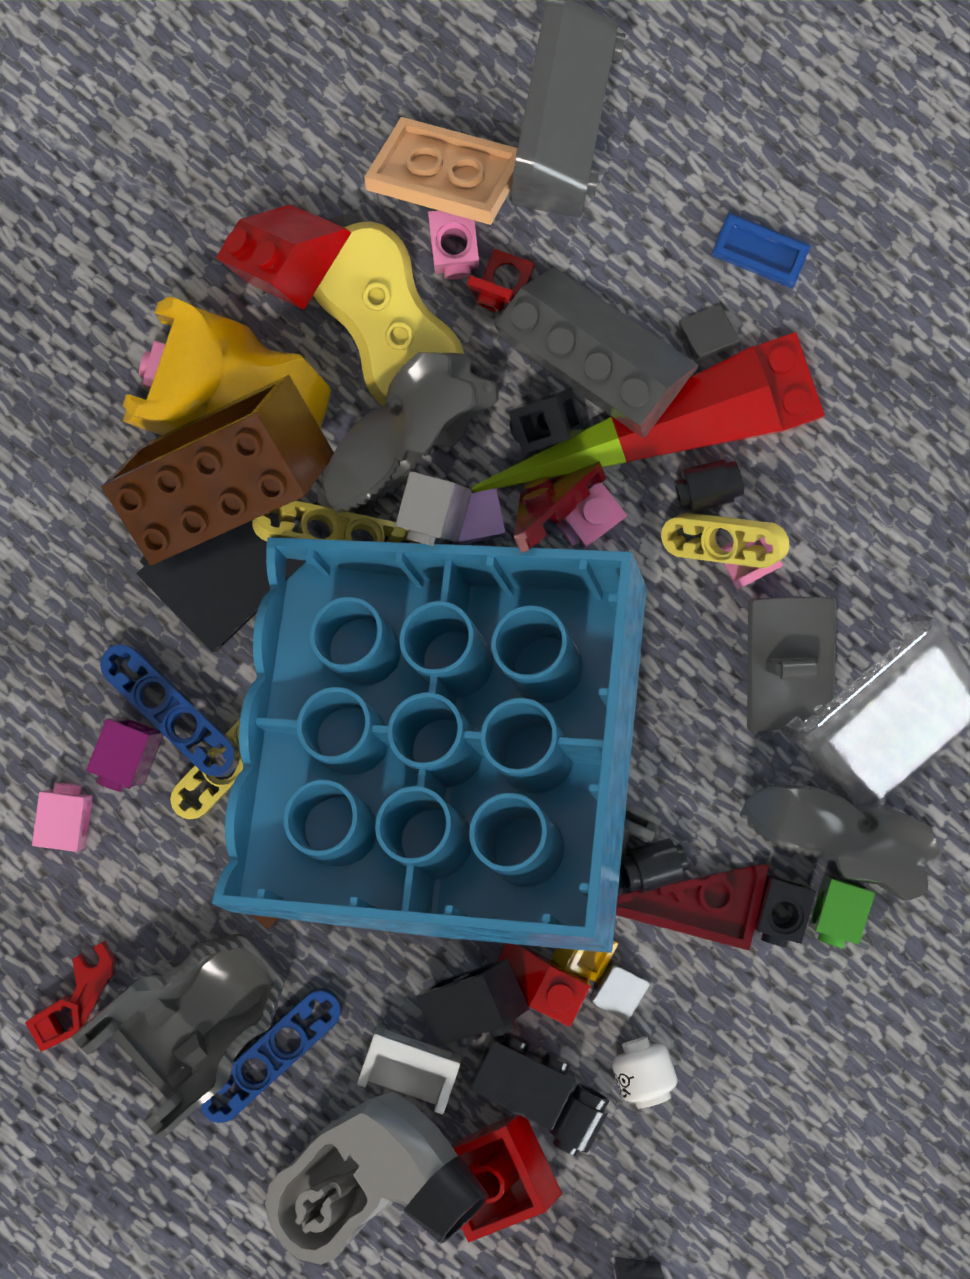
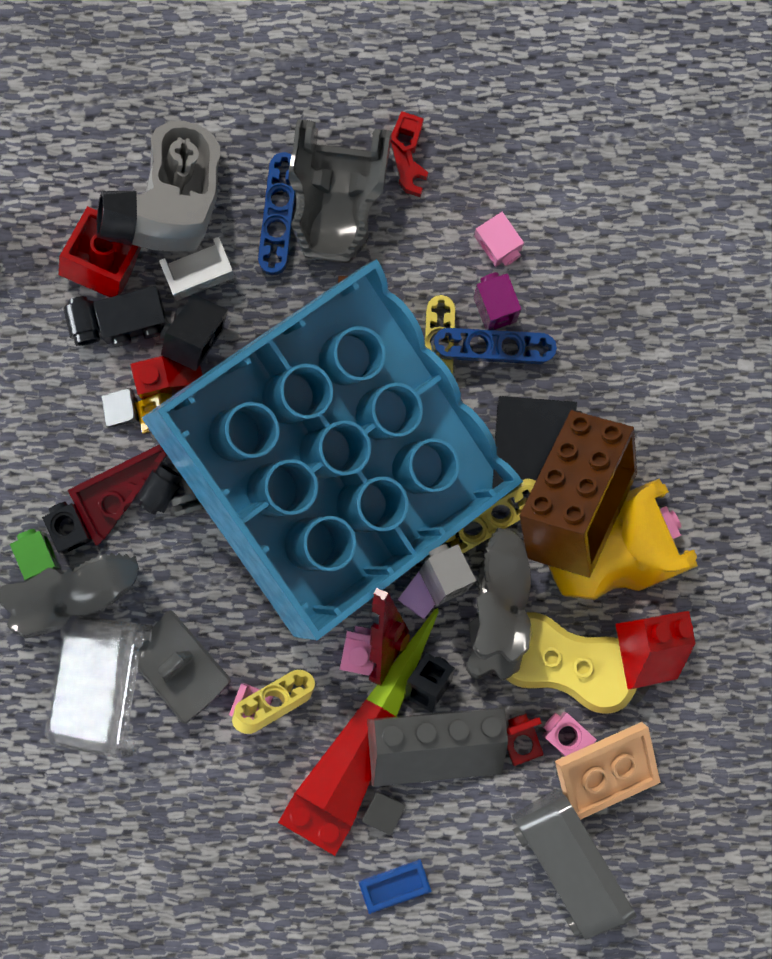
camera: 140 degrees right, 5 degrees down
(644, 1073) = (68, 375): white head -> none
(709, 485) = (308, 726): black brick -> none

